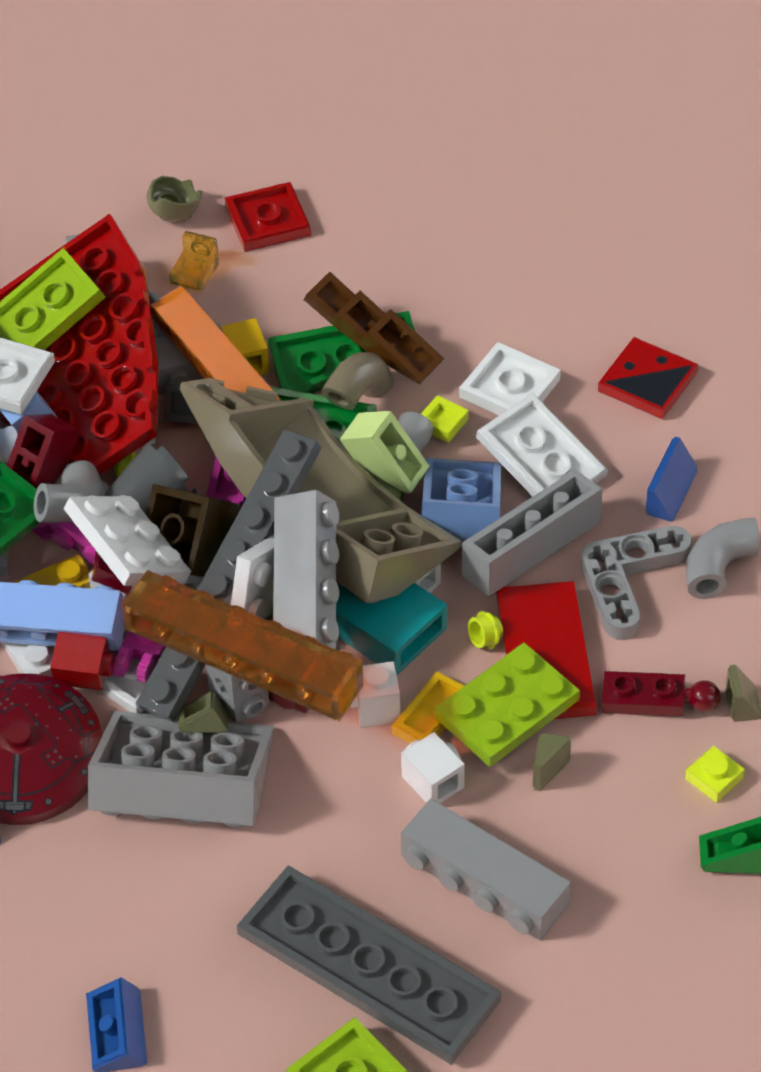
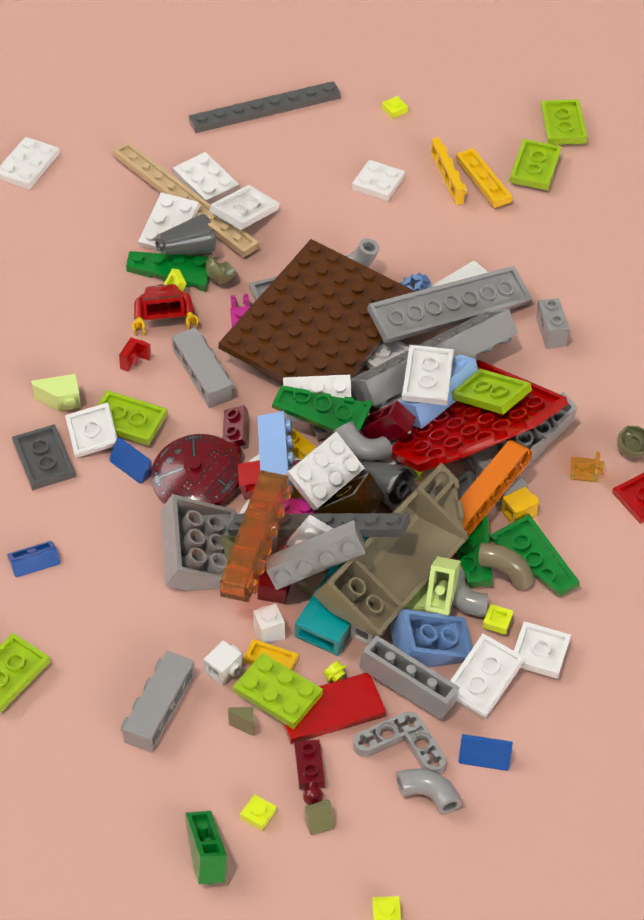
camera: 75 degrees right, 0 degrees up
(370, 964) = (87, 659): dark grey plate -> none
(373, 328) = (551, 563): reddish brown slope -> none
(647, 377) = (576, 728): red tile -> none

